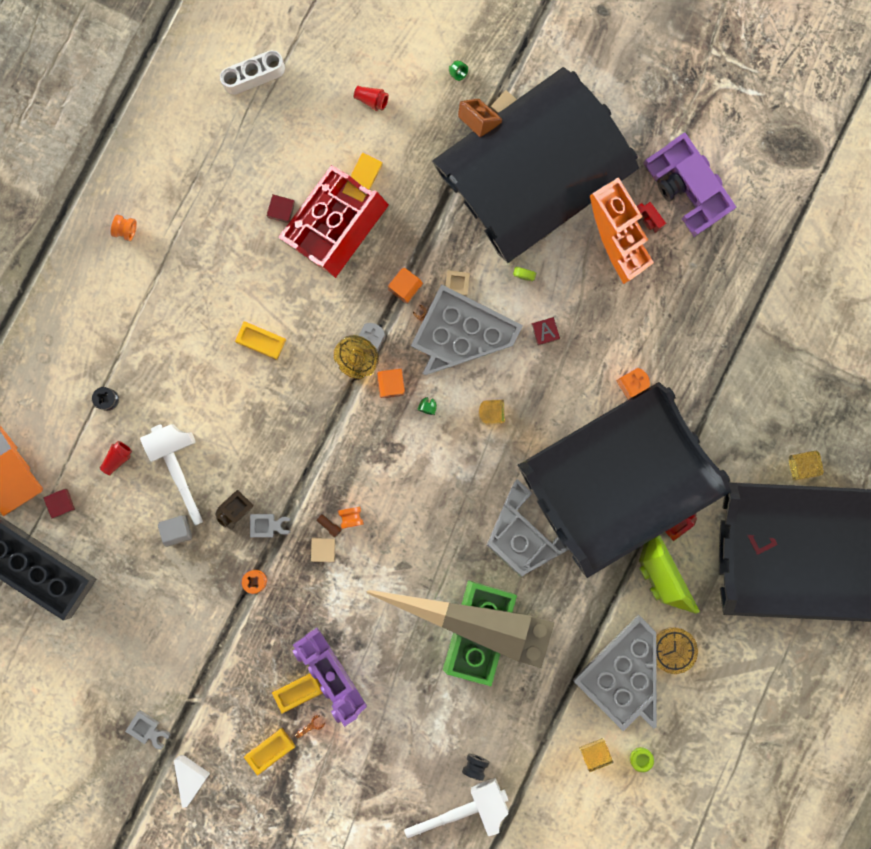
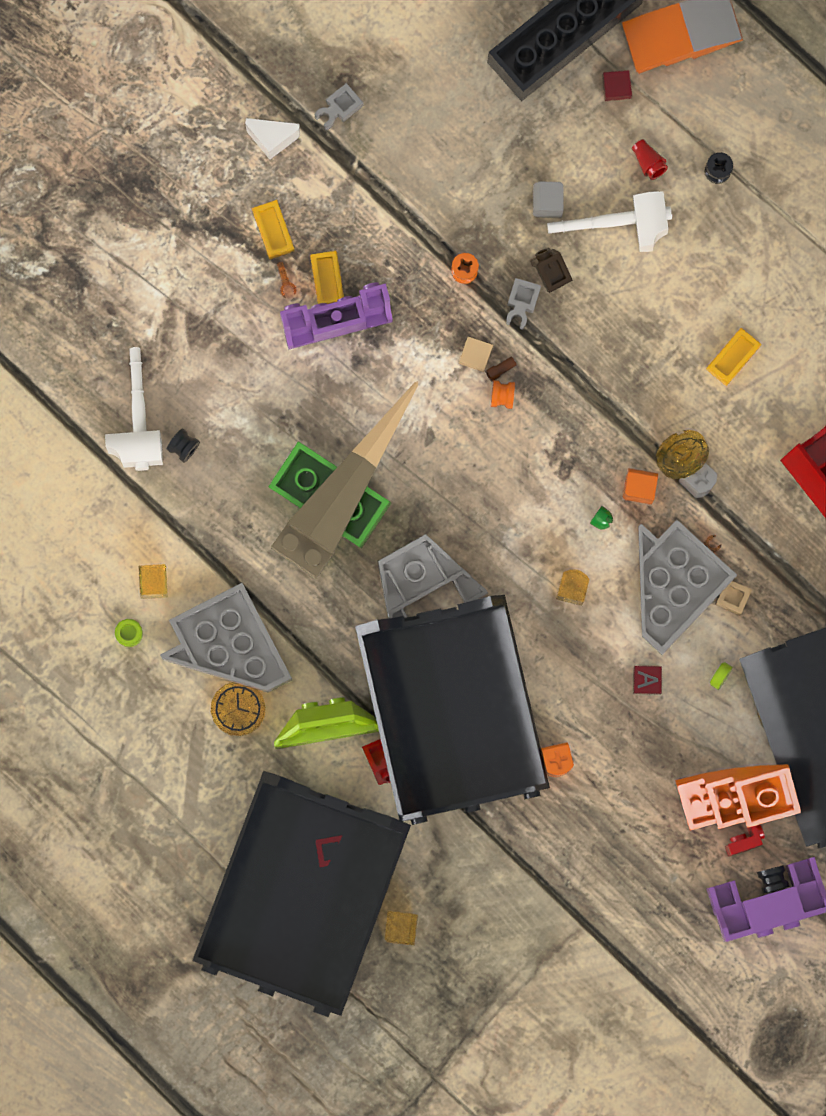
camera: 105 degrees right, 5 degrees down
(405, 285) = (748, 535): orange piece -> none

